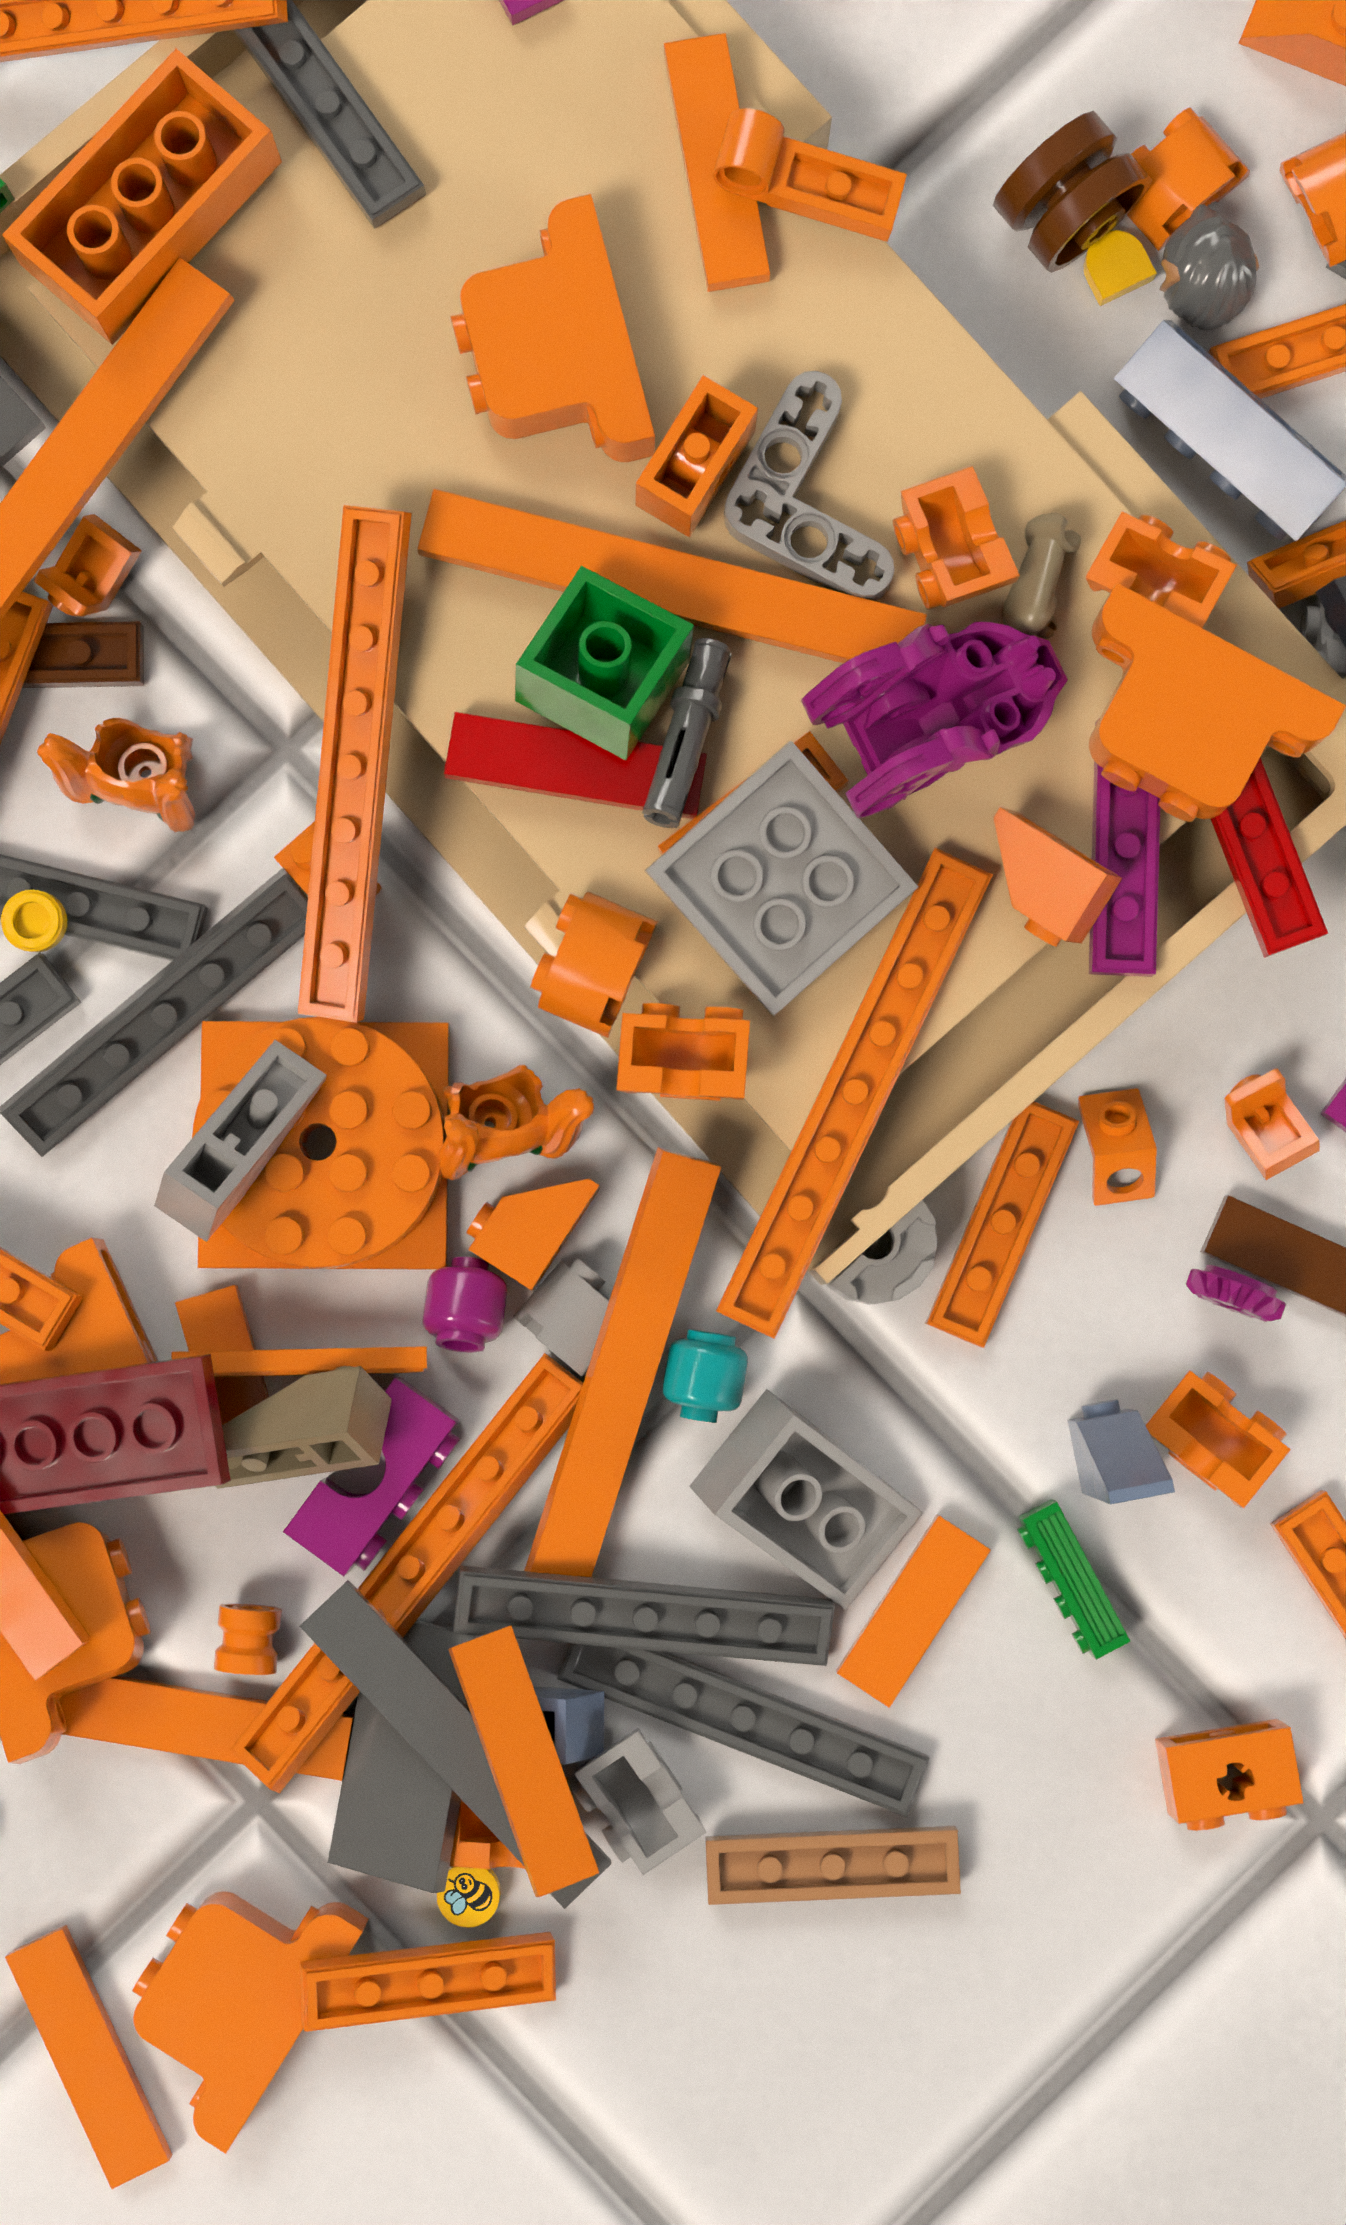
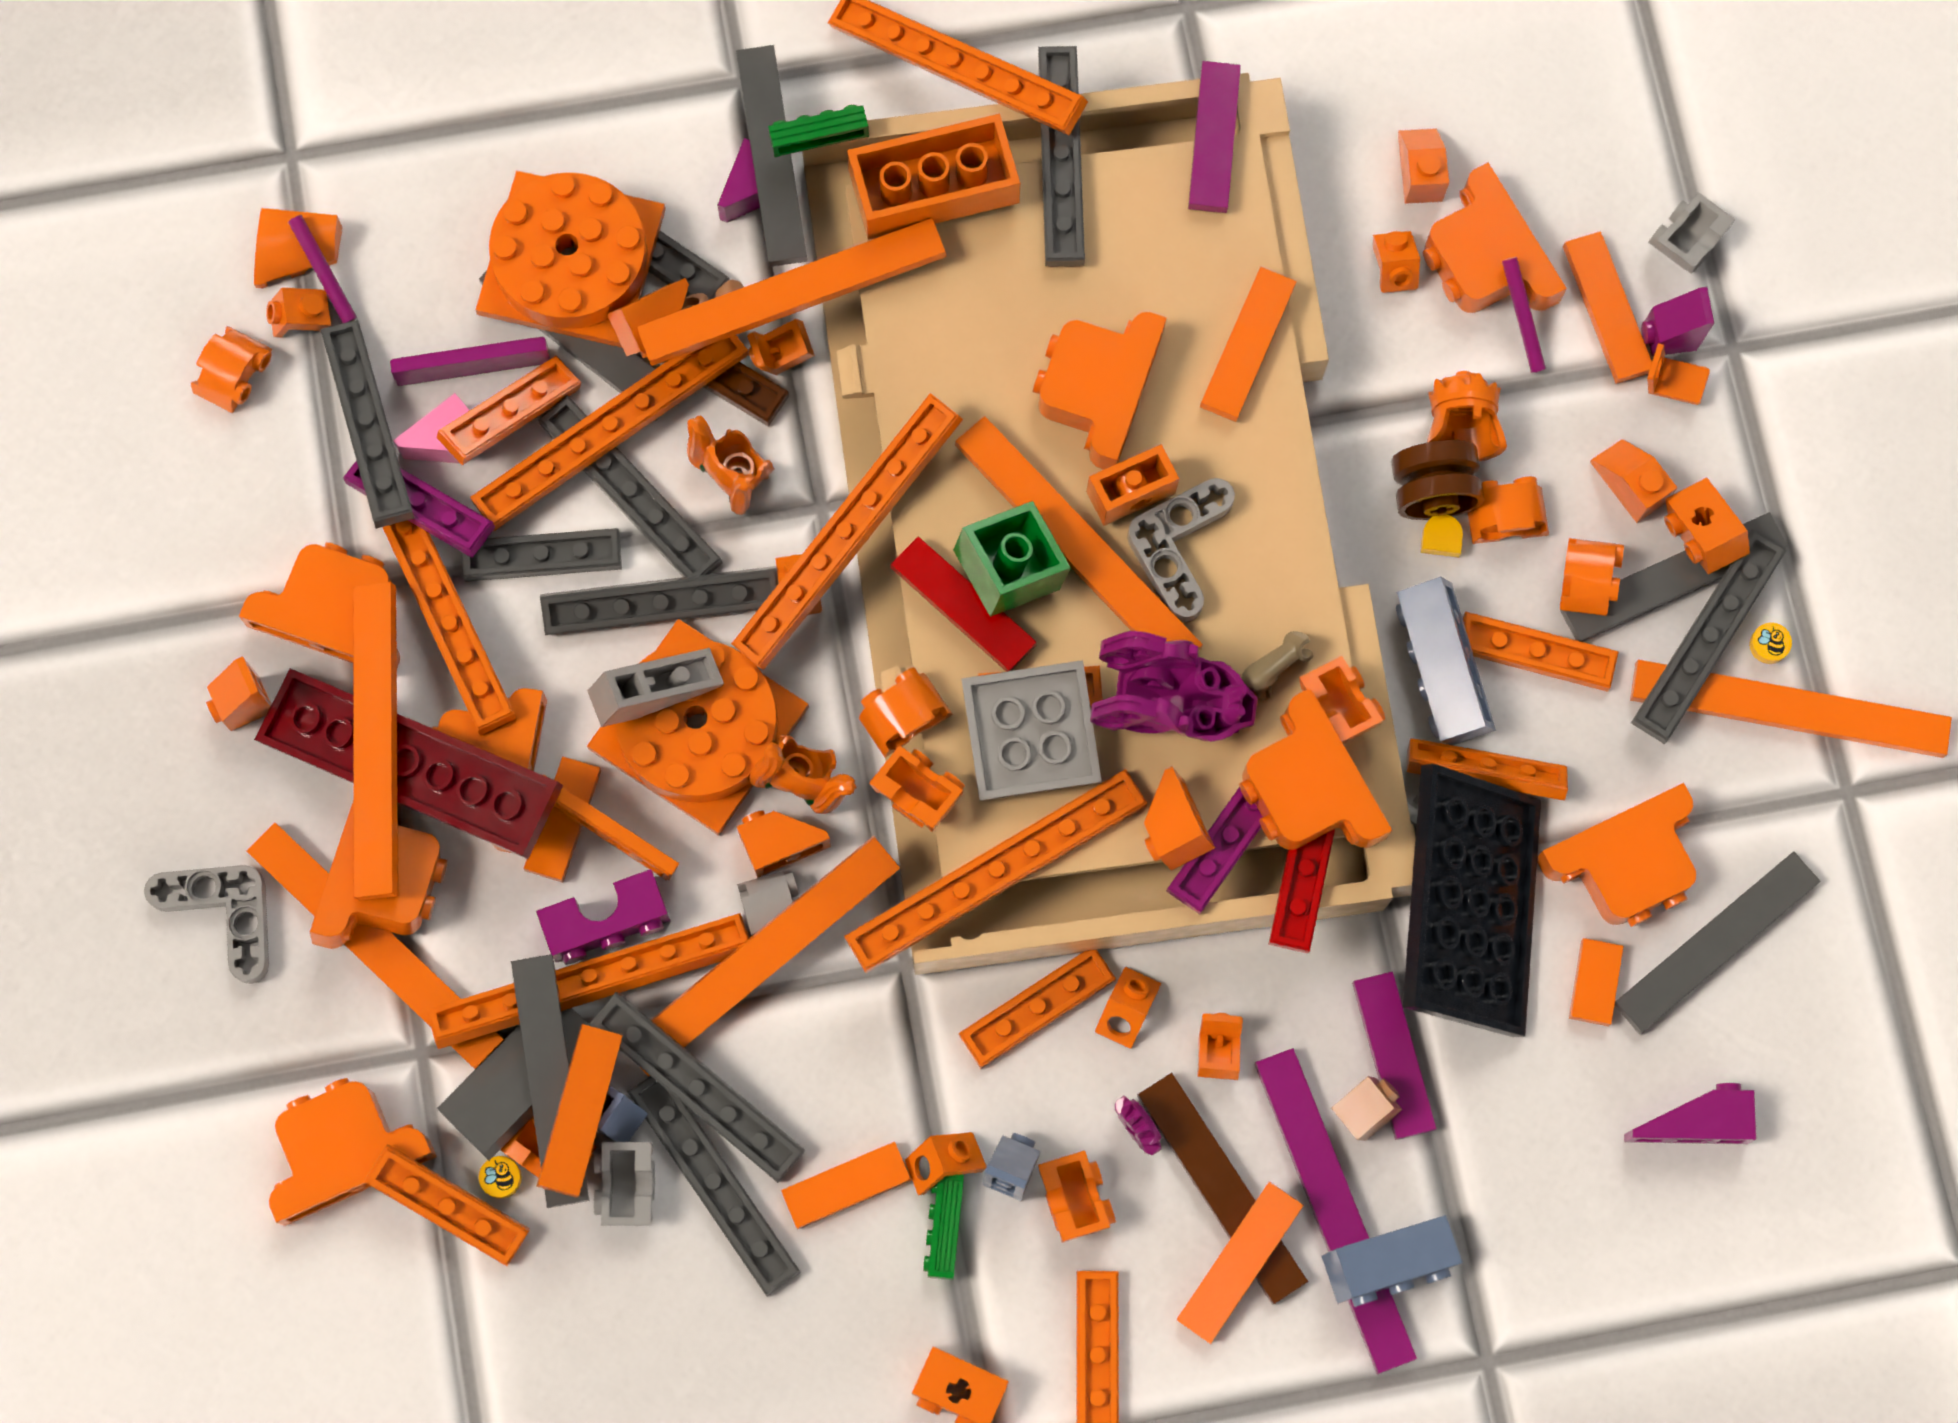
camera: 35 degrees right, 10 degrees down
(34, 921) = (626, 509): yellow tile -> none
(89, 2056) = (238, 1128): orange tile -> none
(247, 1639) = (477, 959): orange wheel -> none
(309, 1428) = (585, 862): dark tan slope -> none
(464, 1305) = (714, 858): magenta head -> none
(694, 709) = (1045, 614): dark grey pin -> none
(705, 1375) = (818, 979): teal head -> none
(804, 1500) = (827, 1085): light grey slope -> none
(806, 178) = (1288, 381): orange plate -> none
(832, 1865) = (707, 1293): medium nougat plate -> none
(900, 1269) = (959, 990): light grey cylinder -> none
(953, 540) = (1243, 613): orange cylinder -> none
(1022, 1494) = (946, 1156): none -> orange bracket
(1050, 76) = (1467, 411): none -> orange hat
(1208, 270) = (1488, 568): dark grey hair -> none

